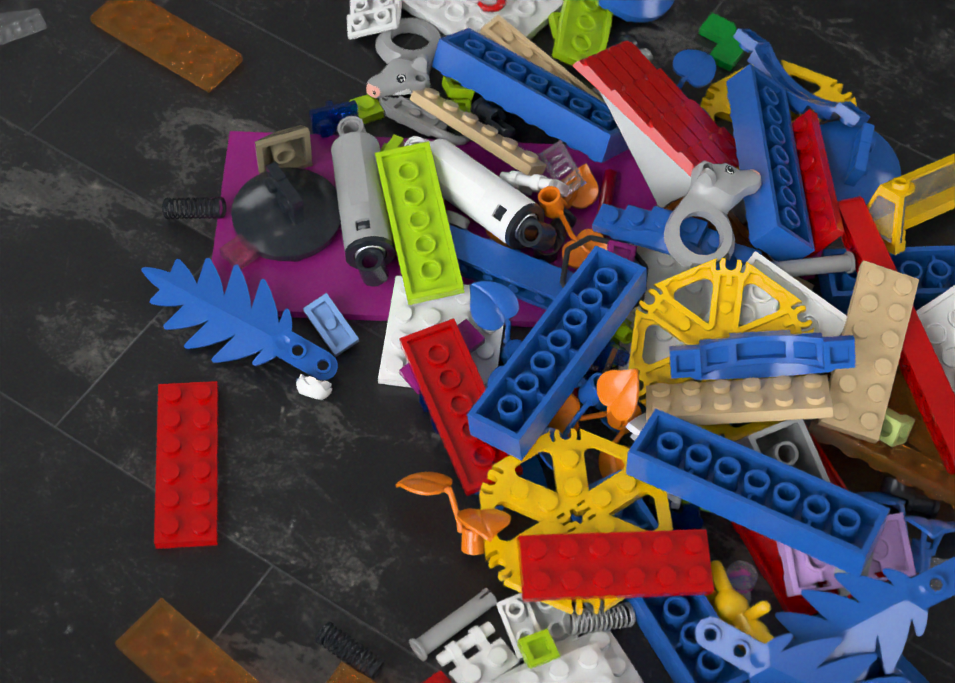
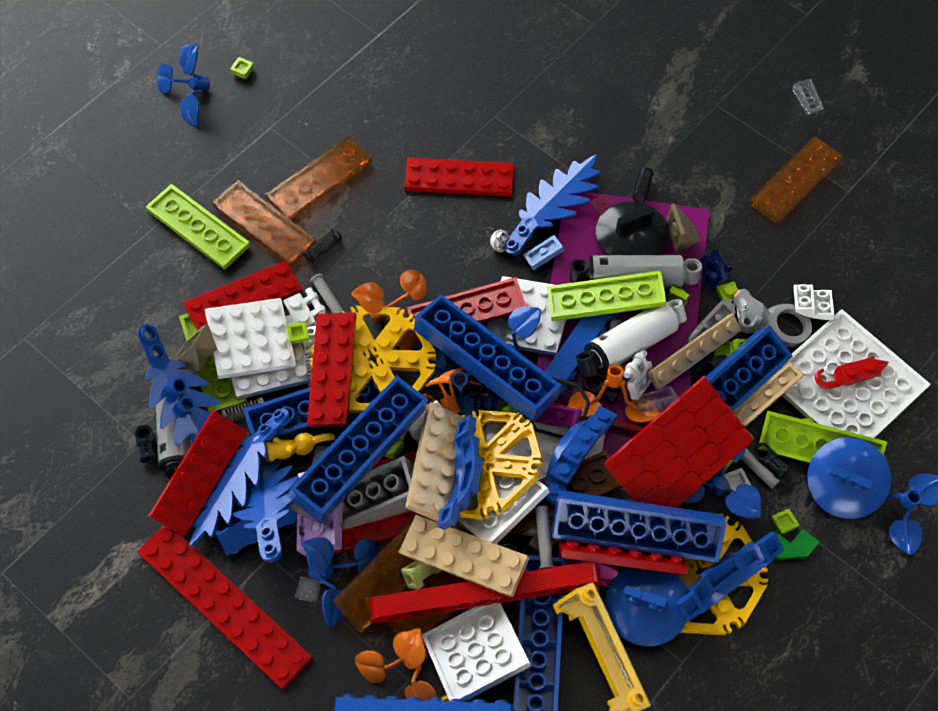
camera: 100 degrees right, 5 degrees up
(692, 41) = (784, 522): none -> lime tile
(711, 196) = (592, 462): light grey animal -> none

